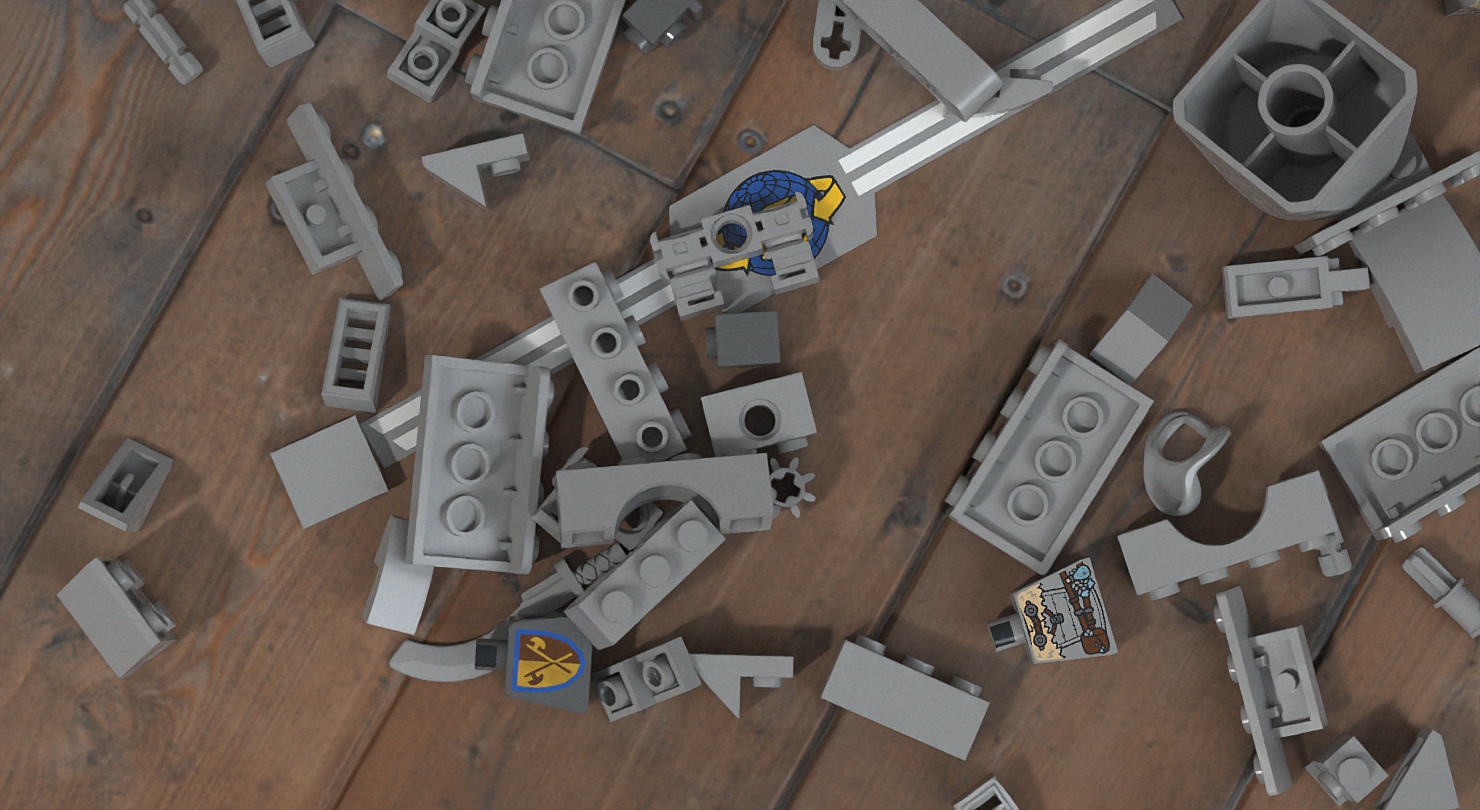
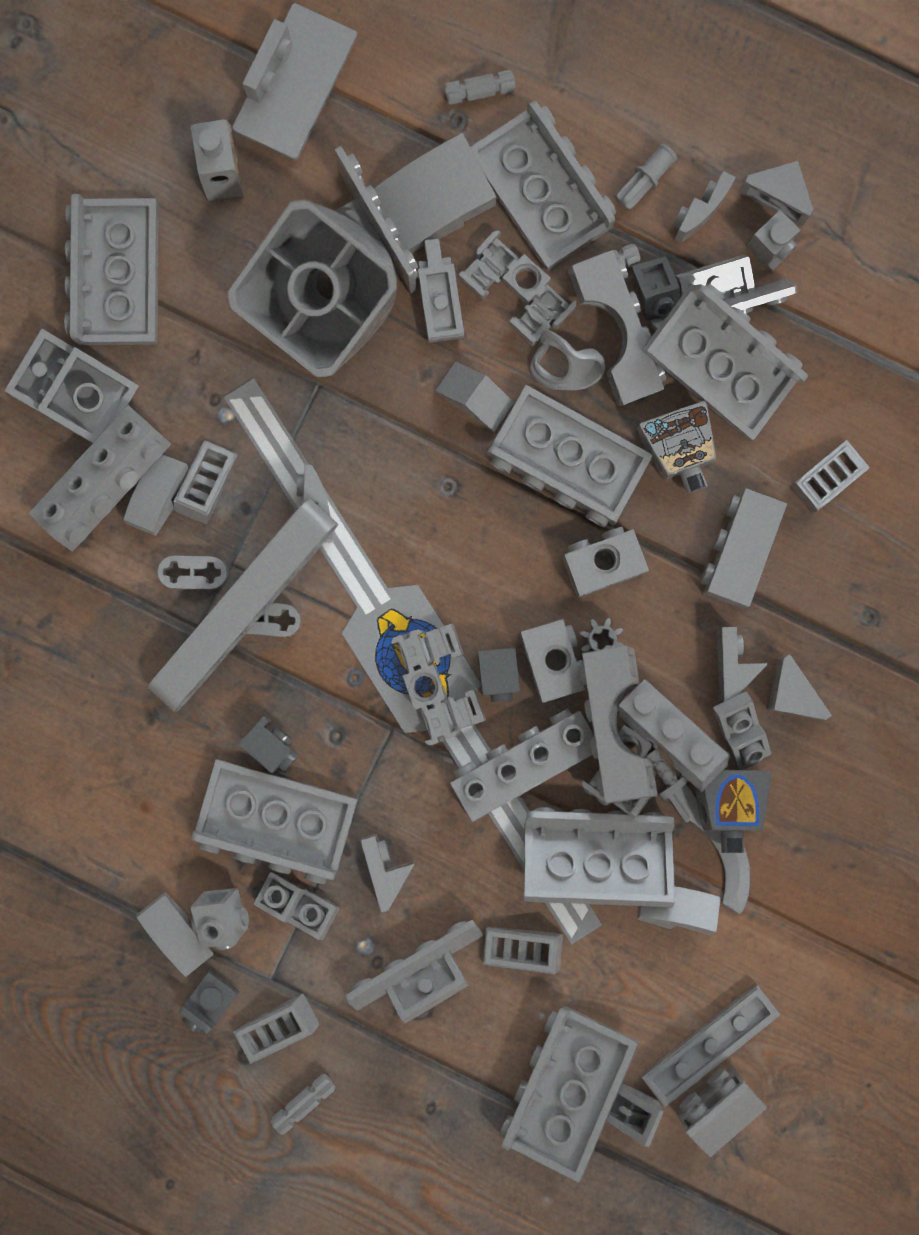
camera: 90 degrees left, 0 degrees up
(157, 405) = (569, 1092): none -> light grey bracket
(208, 610) = (710, 1045): none -> light grey tile
(330, 472) = (607, 963): light grey piece -> none
(693, 756) = (793, 693): none -> light grey slope
(890, 530) = (626, 555): none -> light grey brick
(1174, 683) = (724, 359): none -> light grey bracket
(1285, 597) = (657, 287): none -> dark grey bracket
(1334, 377) = (500, 261): none -> light grey piece
(1388, 661) = (700, 212): none -> light grey slope

